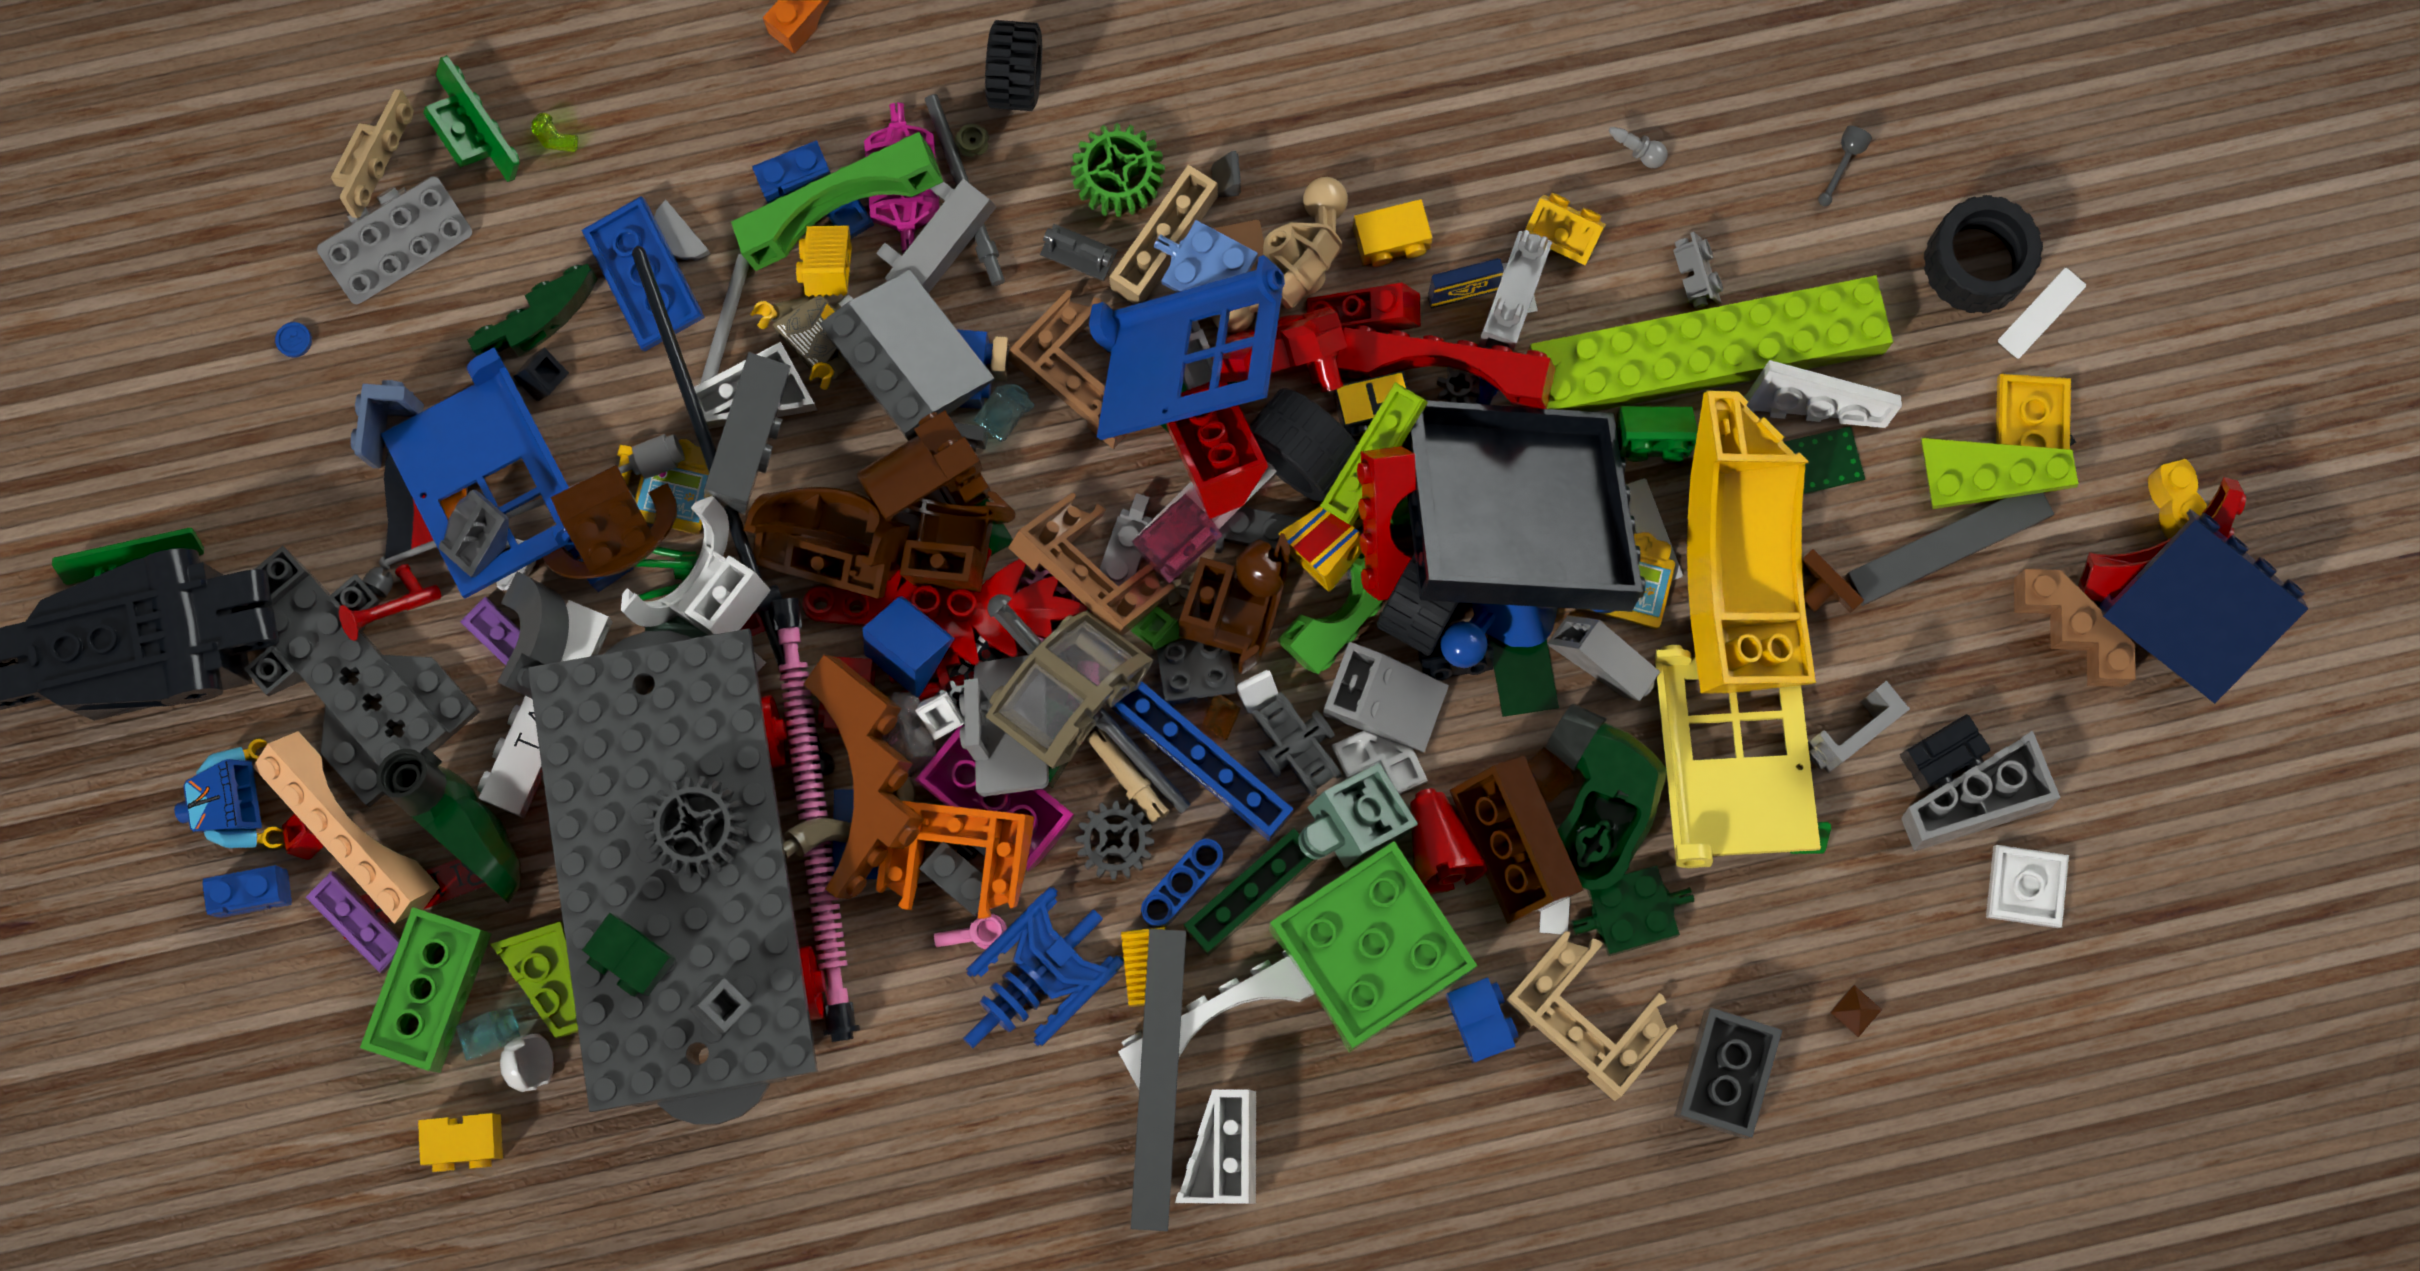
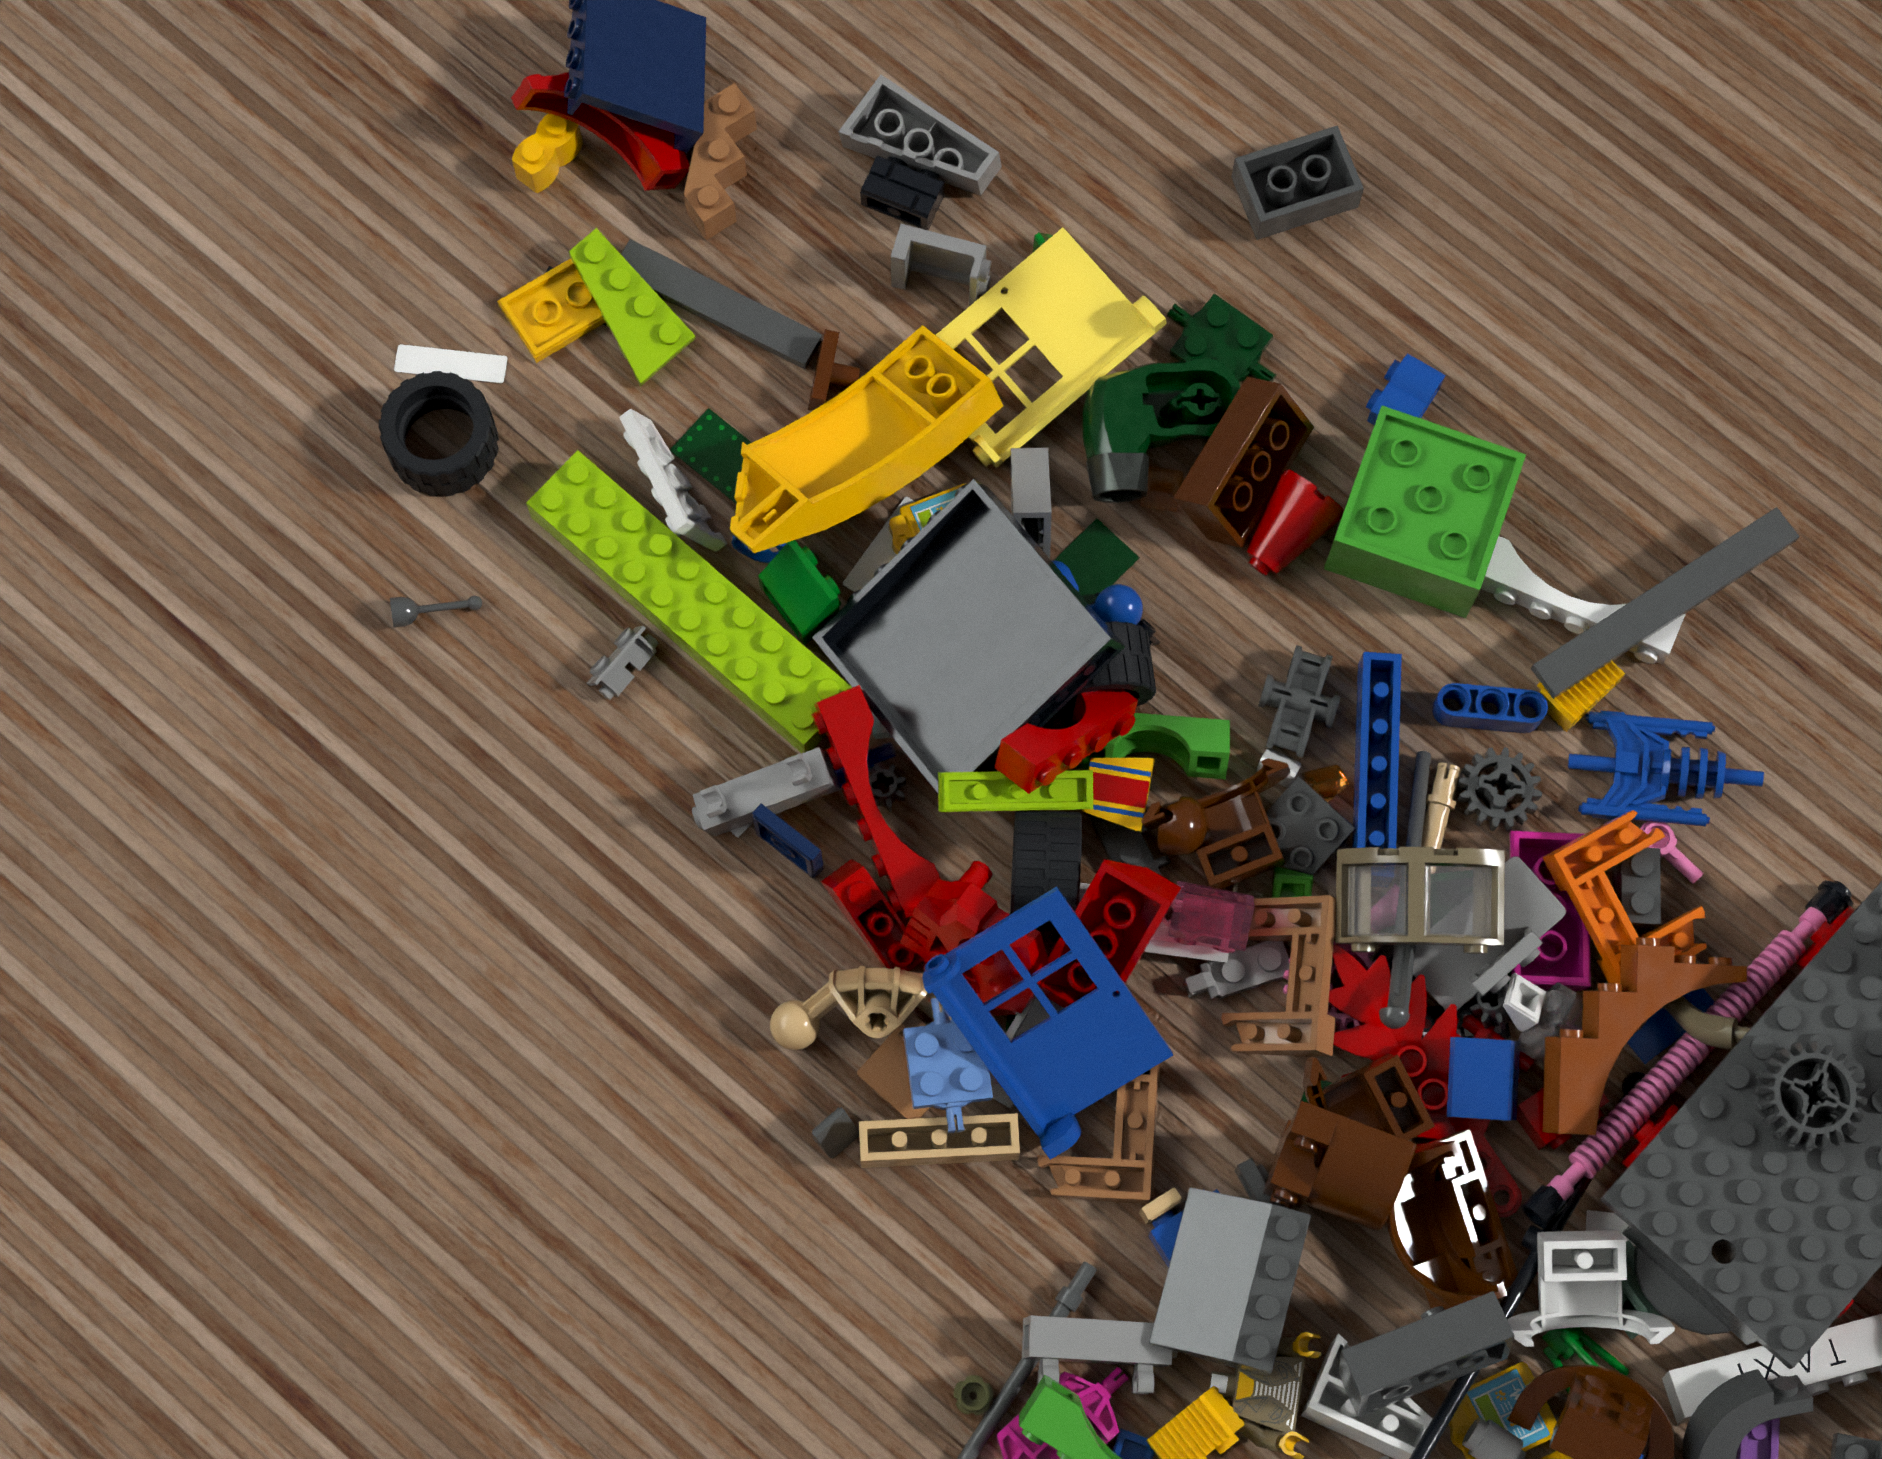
camera: 130 degrees left, 5 degrees down
(1004, 410) = (1204, 1167): clear light blue bracket -> none
(1013, 65) = (881, 1398): black tyre -> none
(1078, 252) = (1006, 1214): dark grey hinge -> none
(1130, 164) = (920, 1246): bright green gear -> none
(1224, 1153) = (1680, 513): white wedge -> none
(1248, 893) = (1455, 644): dark green brick -> none
(1356, 818) = (1328, 599): sand green brick -> none
(1361, 400) = (950, 844): yellow brick -> none
(1369, 749) = (1255, 642): white tile -> none
(1385, 697) = (1205, 657): light grey slope -> none
(1392, 233) = (782, 943): yellow brick -> none
(1570, 231) = (664, 799): yellow bracket -> none
(1609, 1064) = (1358, 277): tan wedge -> none
(1651, 153) = (537, 779): light grey bar -> none
(1856, 1011) = (1164, 130): reddish brown slope -> none
(2027, 886) = (962, 68): white tile -> none

